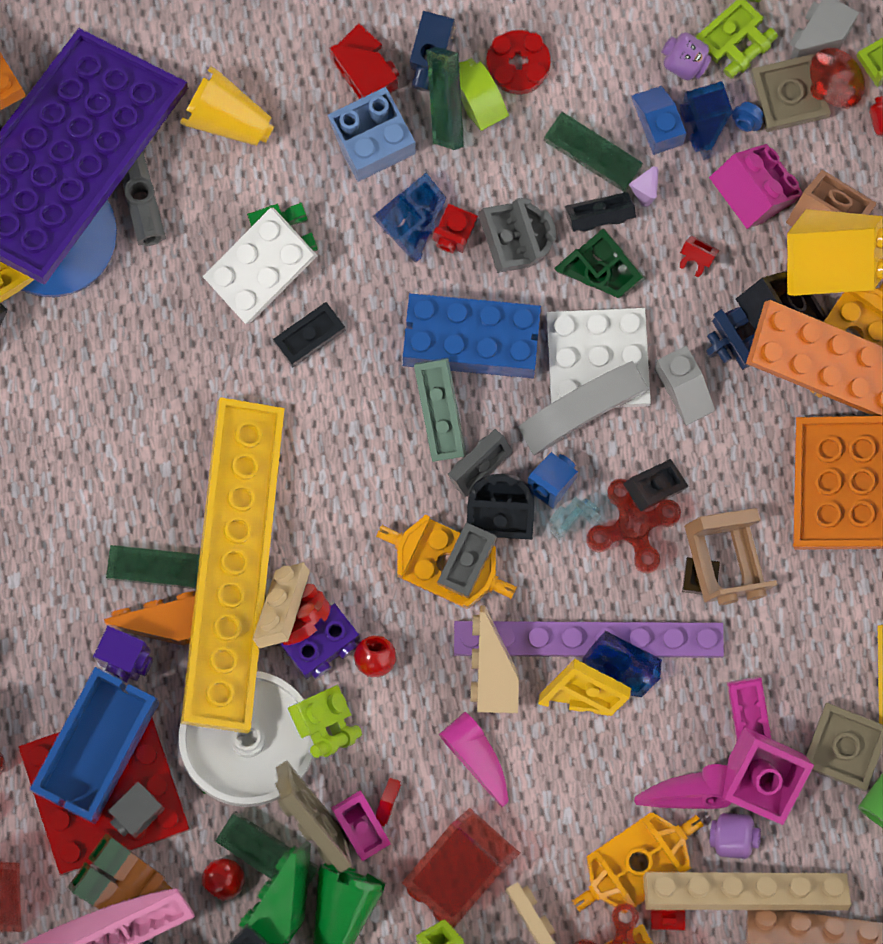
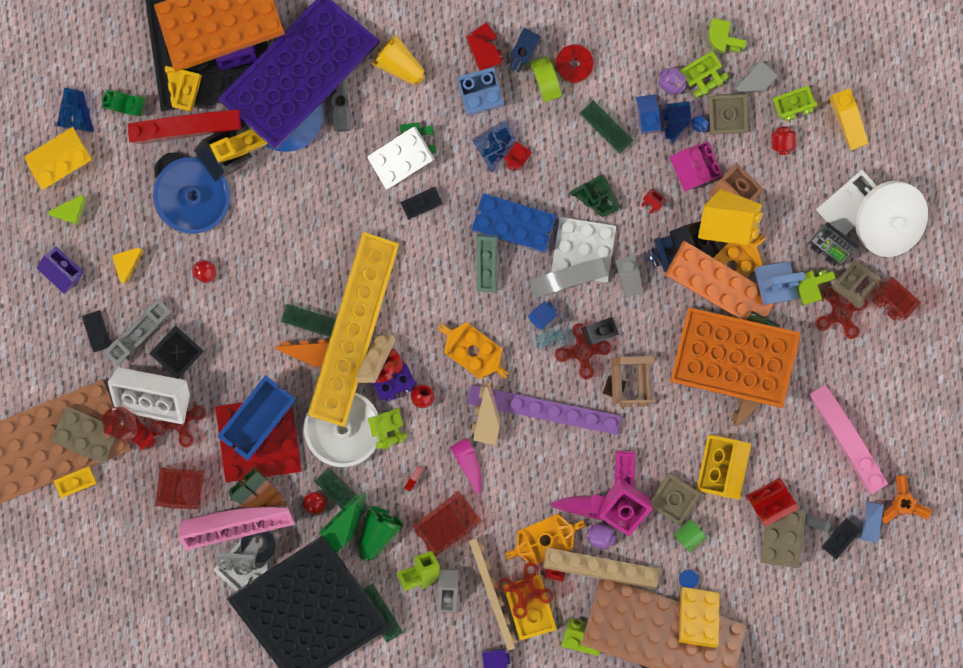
camera: 15 degrees right, 10 degrees up
(123, 655) = (282, 369): dark purple brick -> none
(135, 811) = (273, 457): dark grey brick -> none
(313, 817) = (370, 482): dark tan plate -> none
(361, 825) = (396, 490): dark pink slope -> none
(445, 98) = (526, 81): clear green plate -> none
(467, 560) = (484, 353): dark grey plate -> none
(480, 462) = (503, 298): dark grey plate -> none
(502, 506) = (509, 327): black slope -> none
(517, 234) = (552, 167): dark grey slope -> none
(586, 690) = (536, 439): yellow wing -> none
(600, 211) = (602, 164): black plate -> none
(624, 663) = (557, 429): clear blue slope -> none
(646, 186) = (632, 154): lavender slope -> none
(836, 78) = (756, 111): clear red dish -> none

